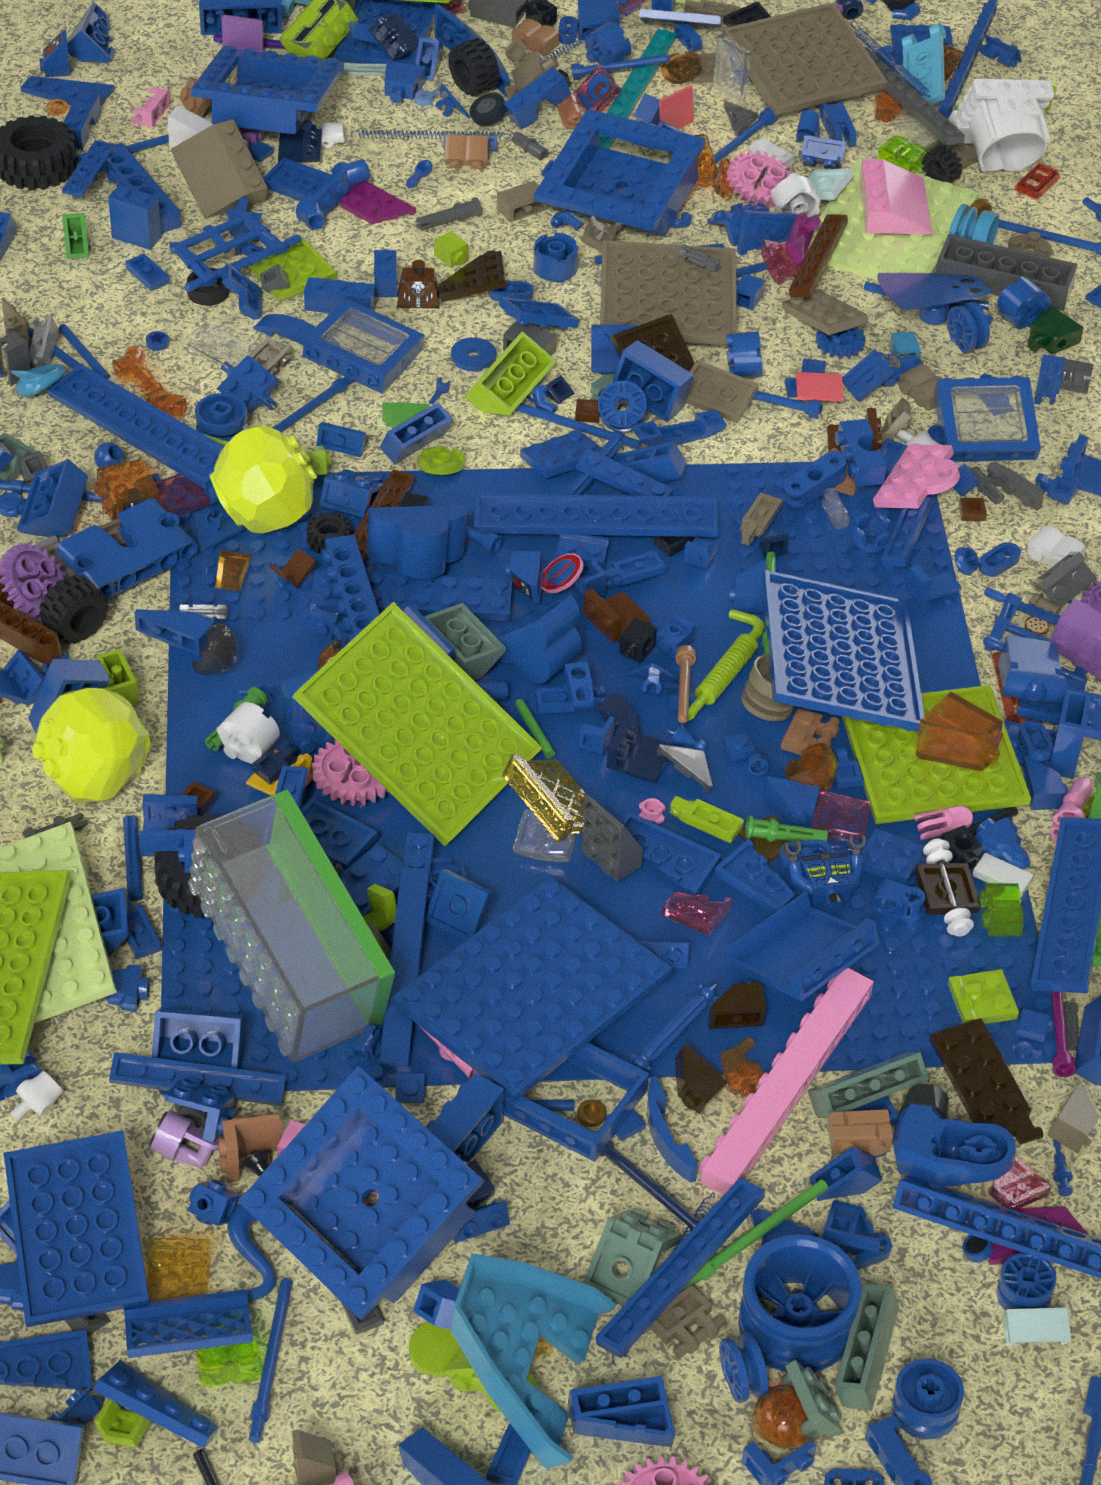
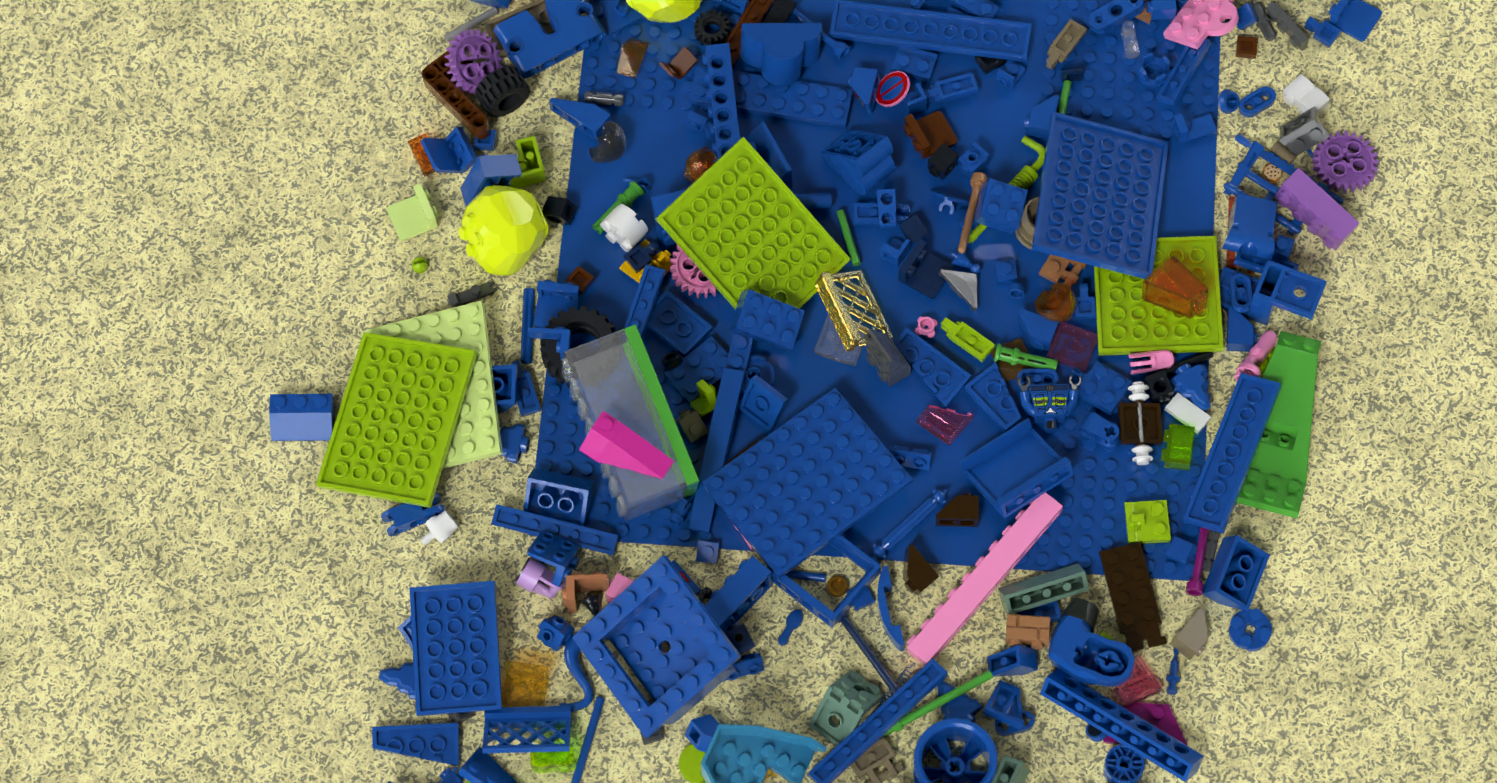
camera: 15 degrees right, 20 degrees up
(162, 727) = (559, 210): none -> black brick
(283, 931) = (619, 446): none -> dark pink wedge
(449, 811) = (766, 320): none -> blue brick
(473, 642) = (803, 153): sand green slope -> none
(539, 1161) = (793, 622): none -> blue piece
(721, 670) = (1000, 205): none -> blue brick
(738, 1072) = (950, 566): clear orange piece -> none

